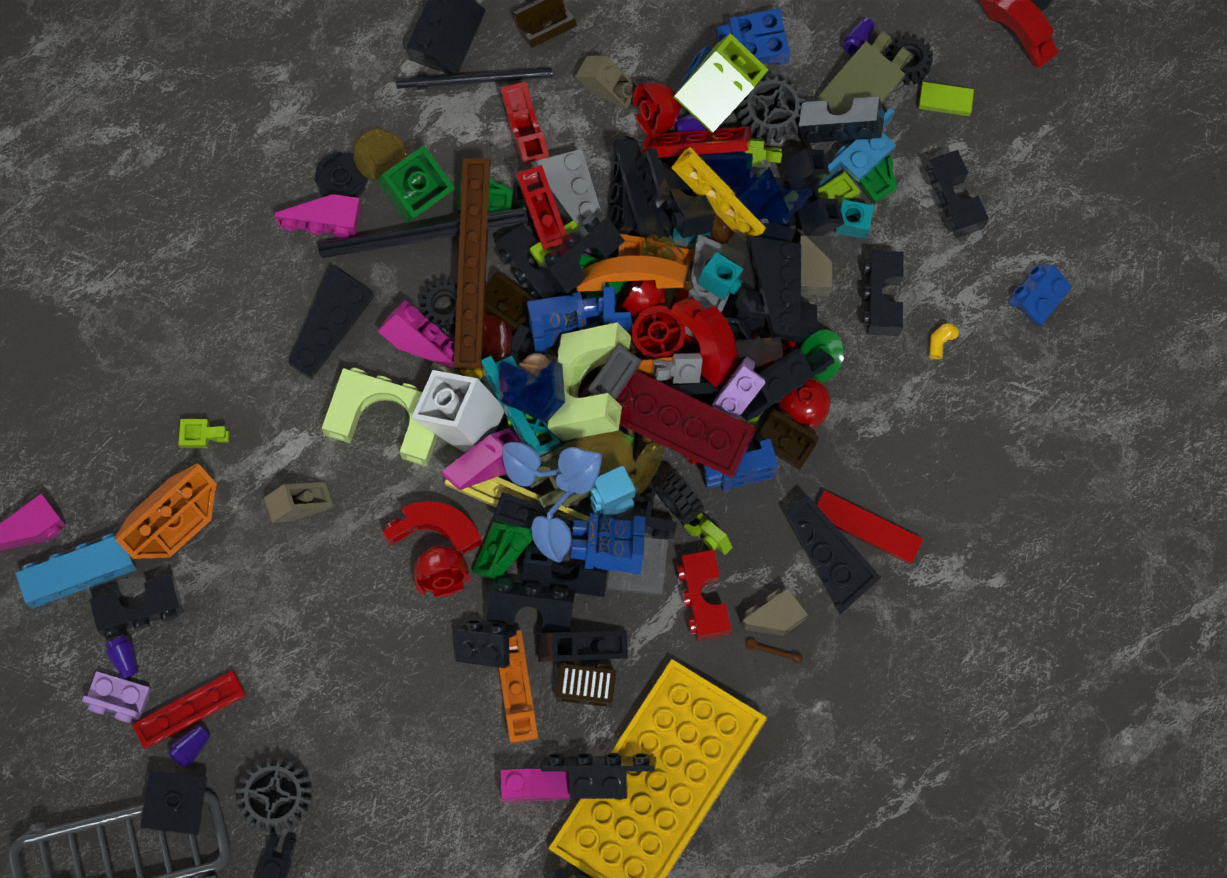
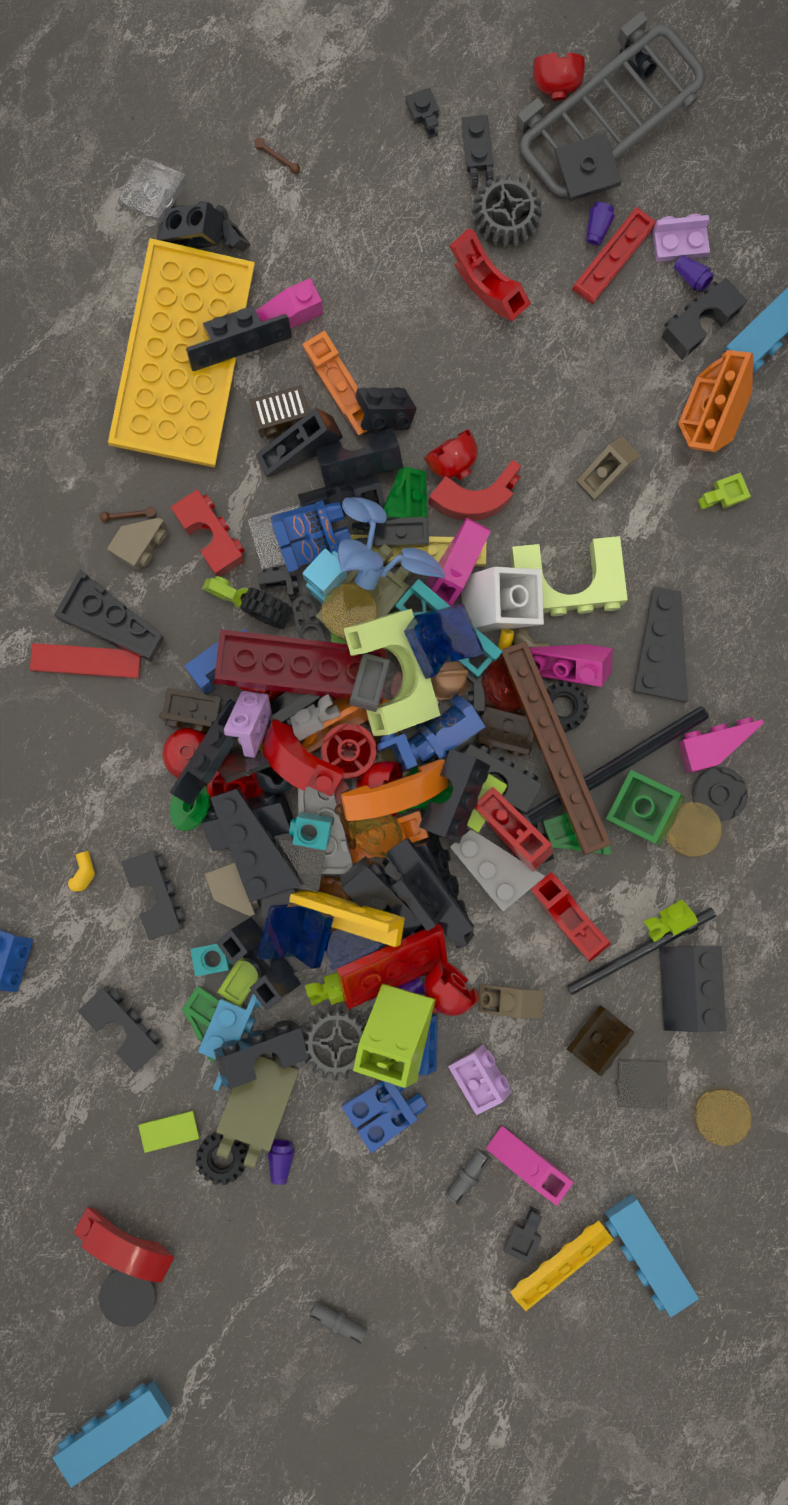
camera: 155 degrees right, 10 degrees up
(325, 727) = (485, 280): none -> red arch
(432, 89) = (673, 918): none -> lime plate
(647, 466) = (307, 615): clear yellow tile -> none
(661, 31) = (480, 1079): none -> lavender bracket

